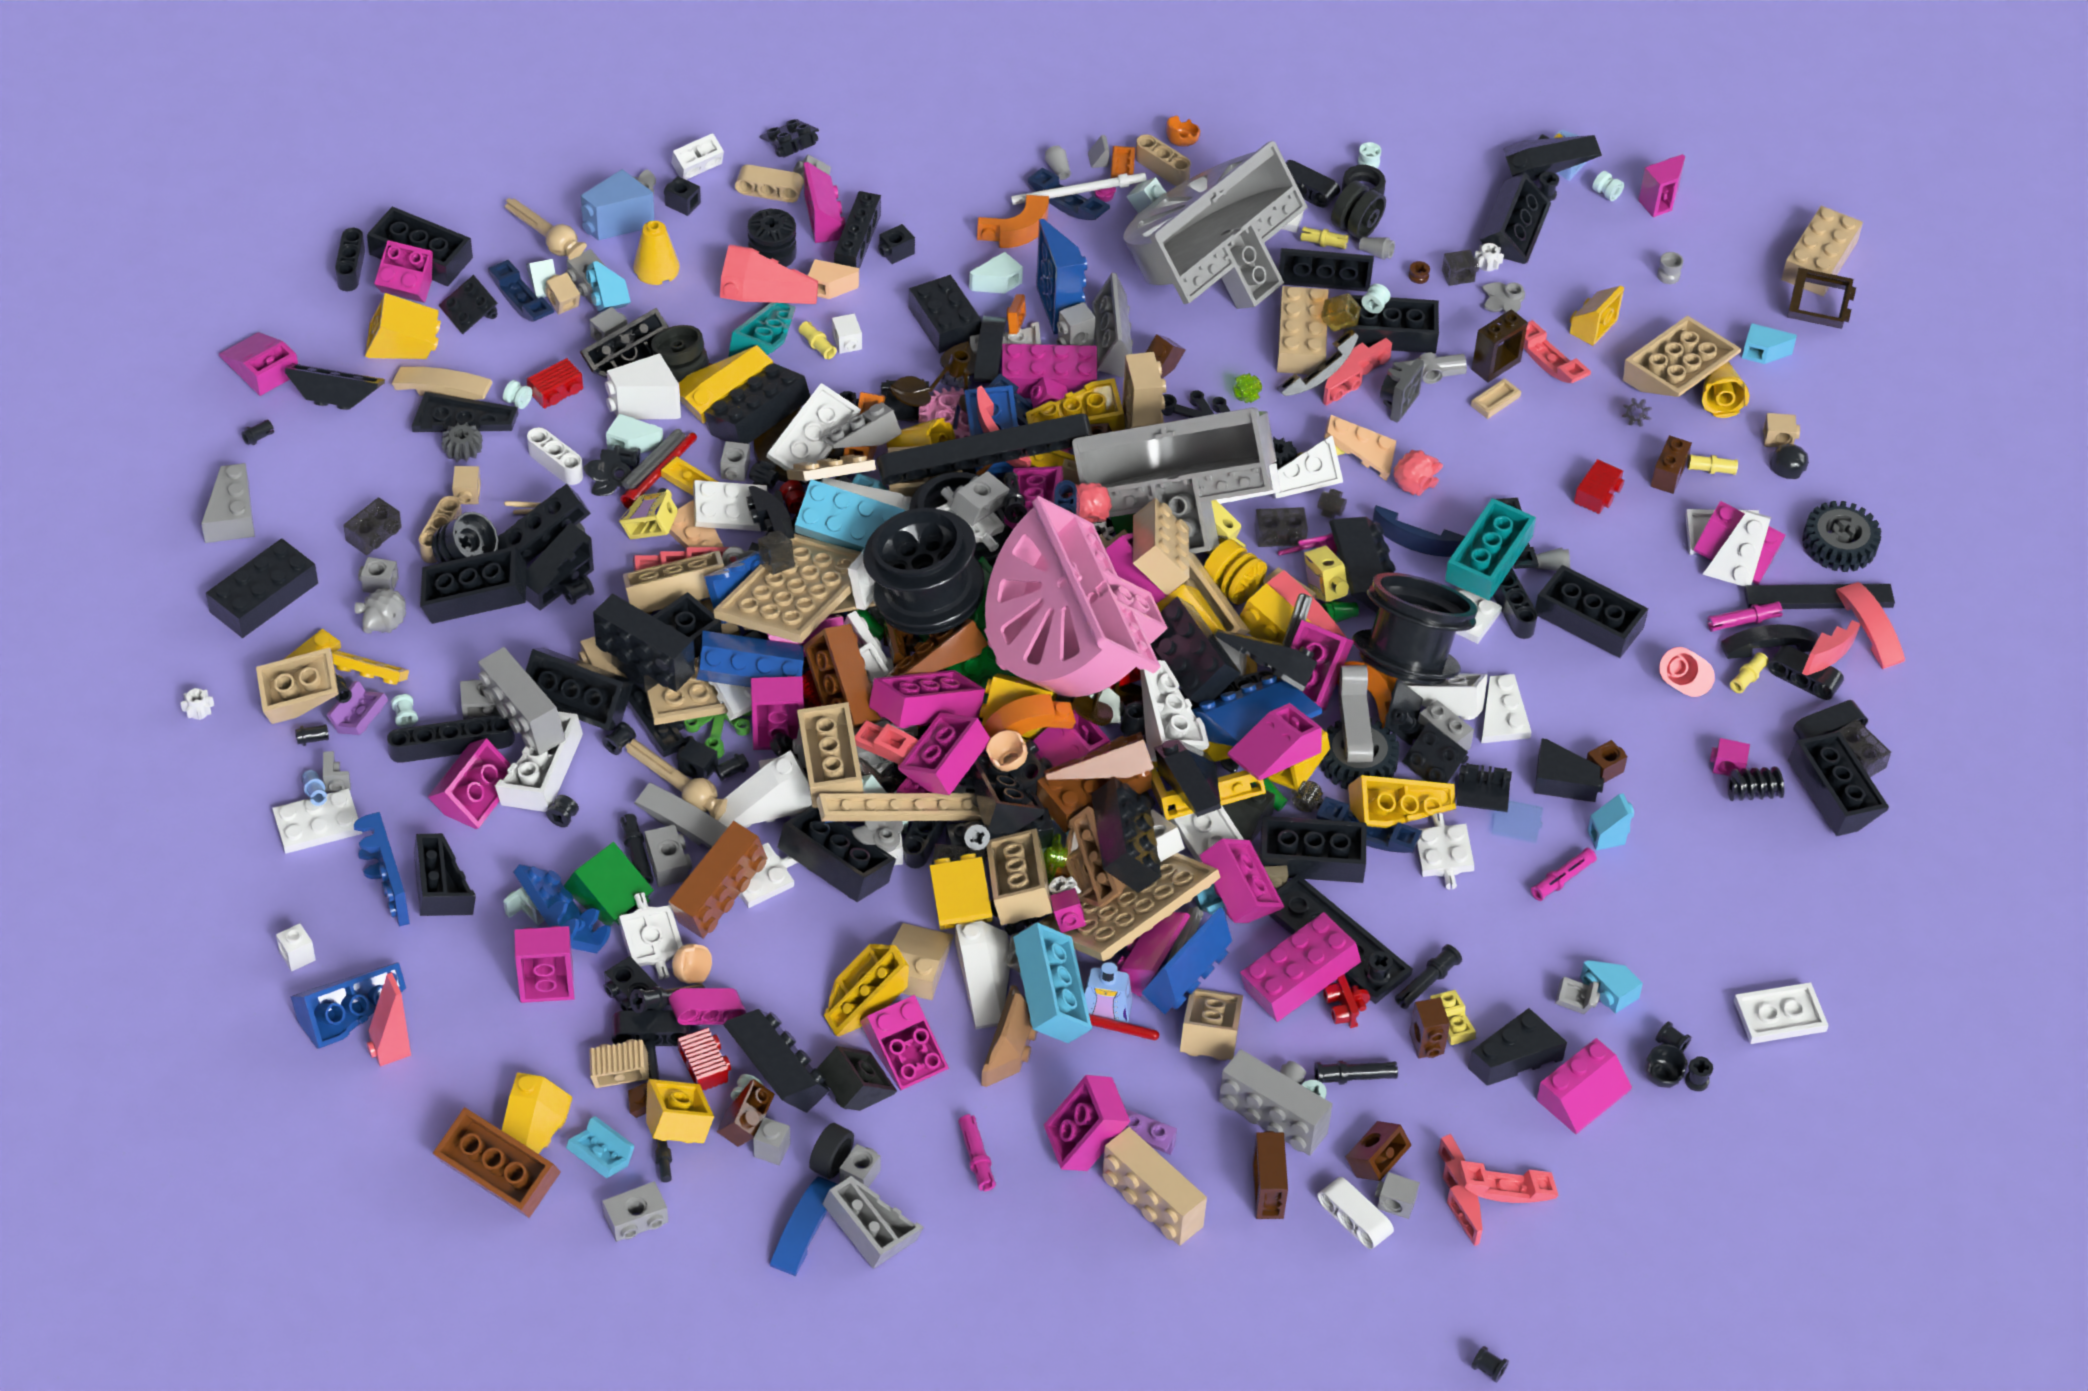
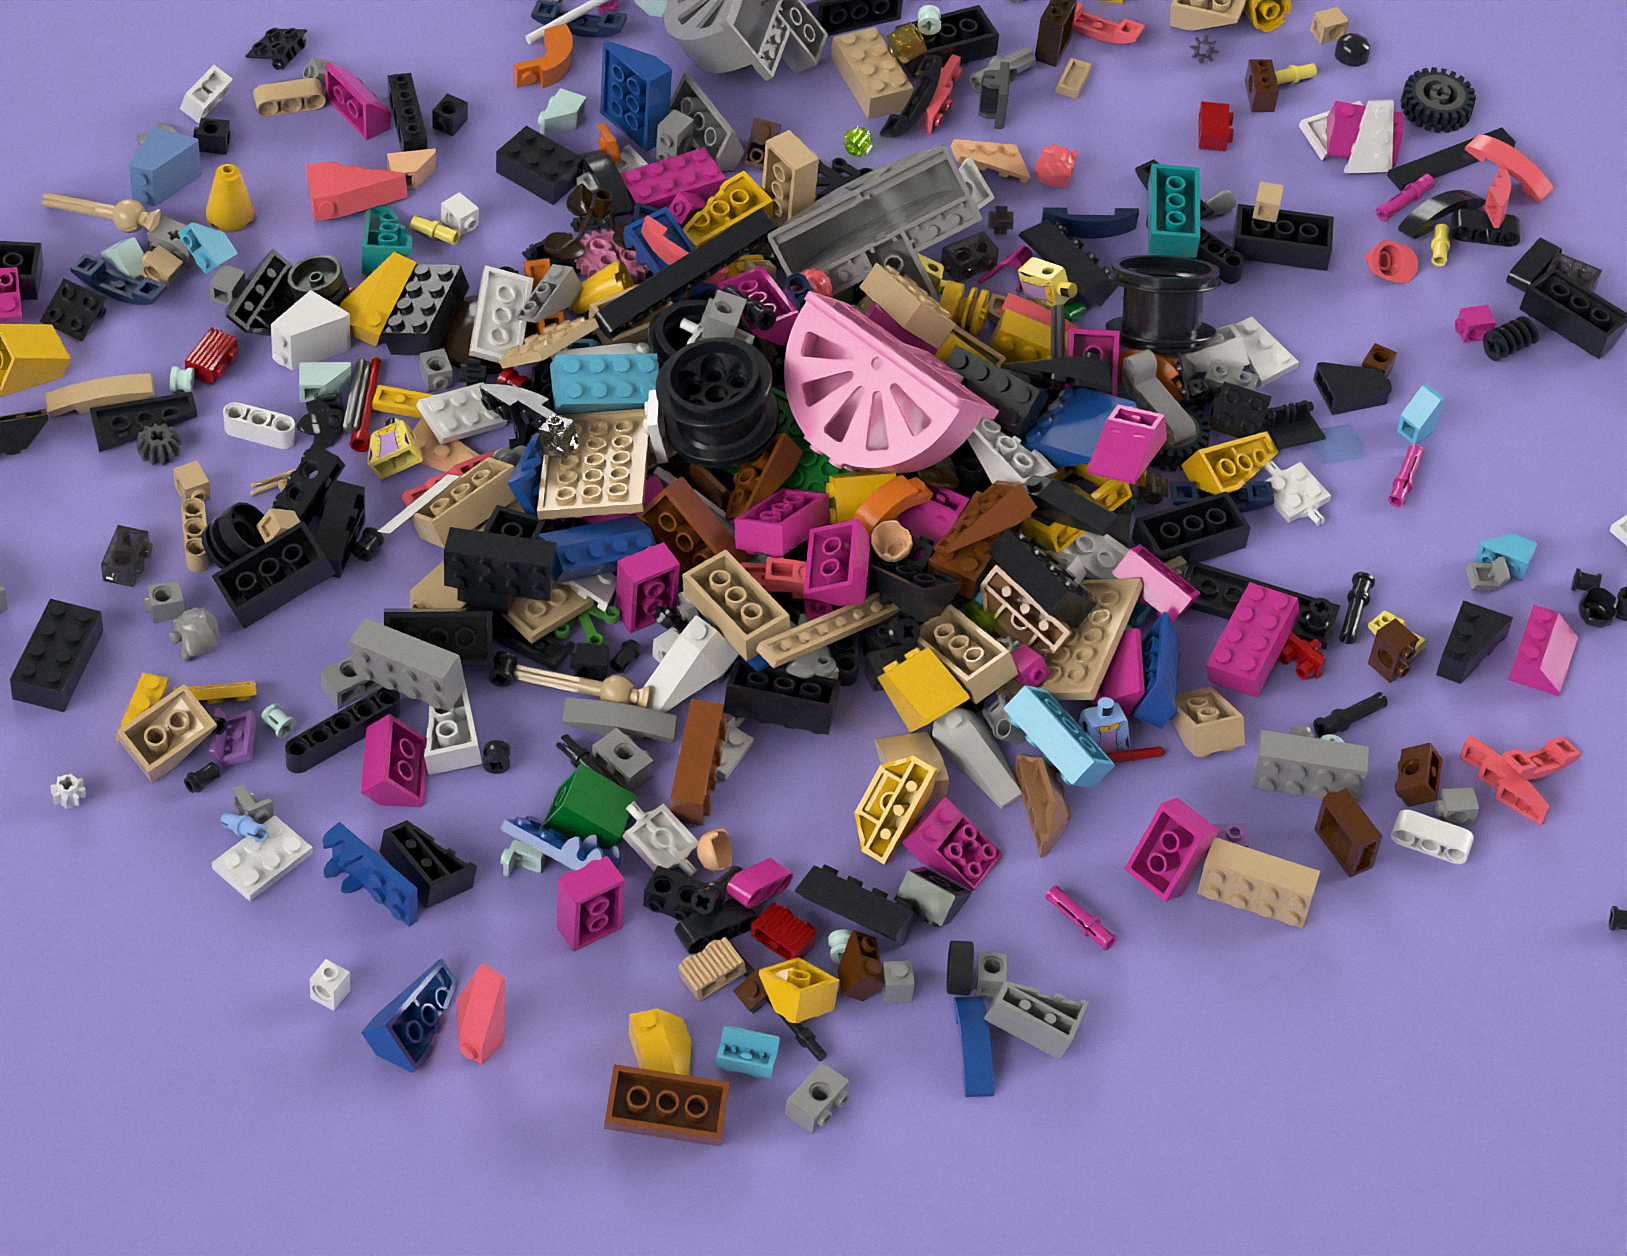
camera: 30 degrees left, 0 degrees up
(498, 539) = (276, 522): none -> tan brick
(636, 569) = (418, 504): none -> white sticker
(773, 235) = (332, 140): black wheel -> none
(1587, 571) = (1268, 201): none -> tan brick

